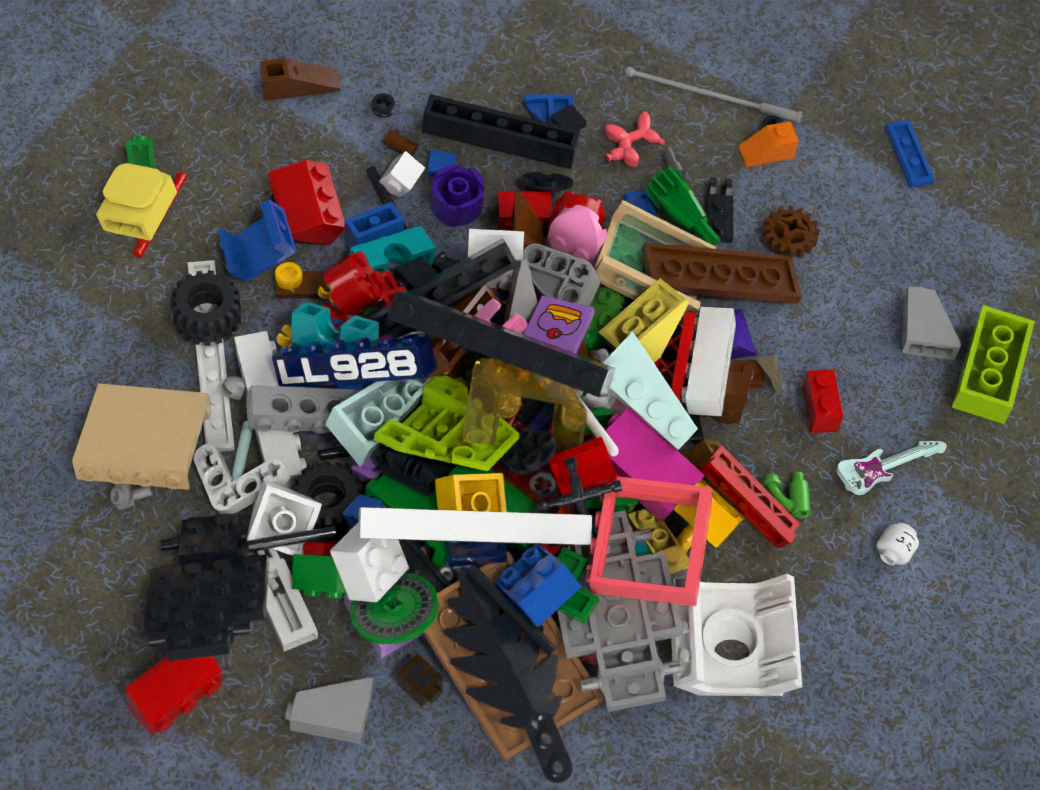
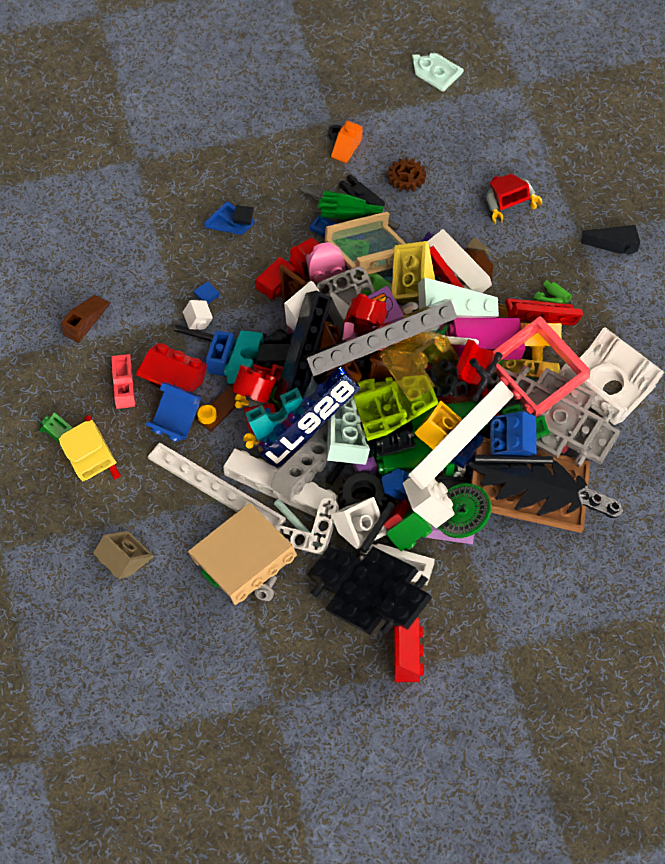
camera: 40 degrees left, 0 degrees up
(45, 328) = (122, 554): none -> dark tan slope
(200, 290) = (190, 452): black tyre -> none
(233, 387) = (252, 490): light grey hinge -> none
(253, 171) = (123, 381): none -> coral slope
(332, 710) = (486, 586): light grey slope -> none
(389, 108) = (144, 287): black bush -> none
(400, 143) = (174, 301): reddish brown pin -> none
(420, 681) = (505, 534): dark brown brick -> none
(457, 195) = (237, 299): dark purple brick -> none
(500, 131) = (217, 250): black brick -> none
(526, 311) = (365, 313): none -> red brick
(542, 182) = (269, 254): black dish -> none
(624, 139) = (272, 201): coral piece -> none
(723, 272) = (405, 220): reddish brown plate -> none
(763, 107) = (340, 117): light grey piece -> none
(822, 401) = (516, 239): red brick -> none
(864, 473) = (573, 256): light aqua piece -> none
(873, 344) = (507, 192): none -> red torso
(897, 544) = (624, 272): white head -> none
(909, 154) = (411, 89): blue tile -> none
(927, 326) = (517, 160): light grey slope -> none
(934, 502) = (614, 239): none -> black slope
(961, 159) = (436, 70): none -> light aqua tile
(993, 364) = (567, 153): lime brick -> none

